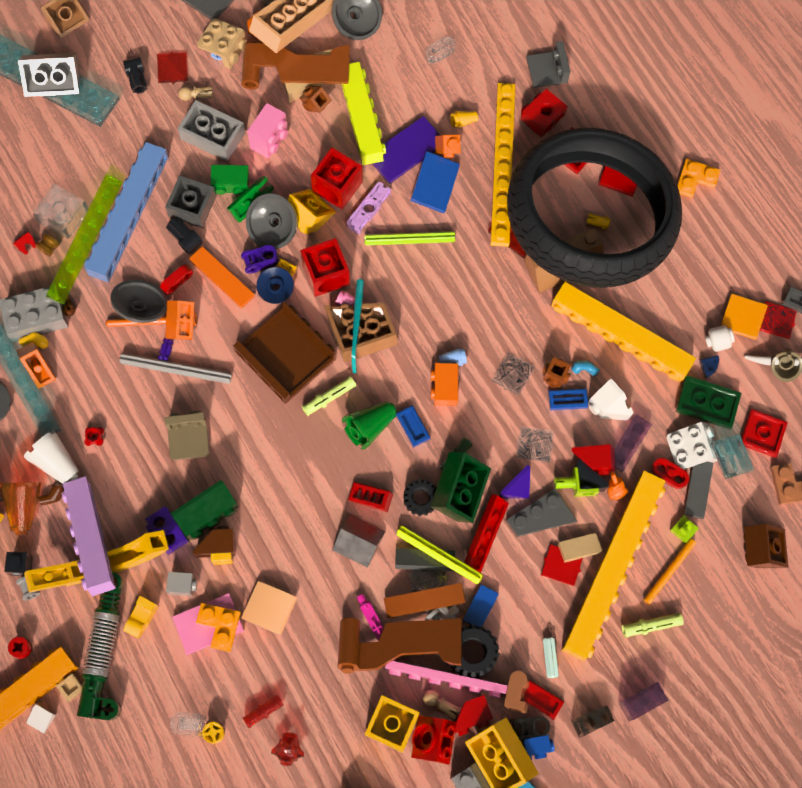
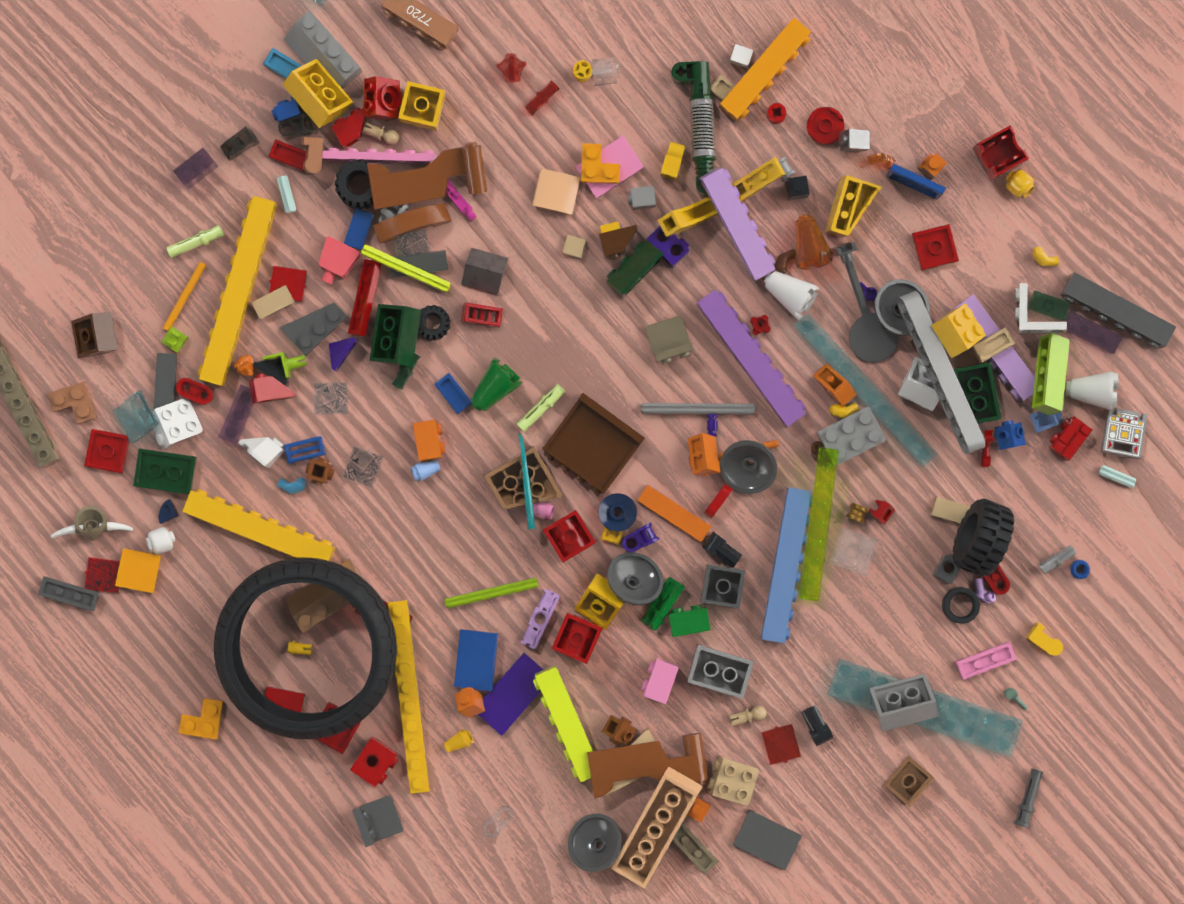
camera: 175 degrees right, 15 degrees up
(111, 405) = (750, 358): none -> medium lavender brick
(262, 548) = (574, 246): none -> tan tile
(507, 578) = (337, 259): none -> coral torso

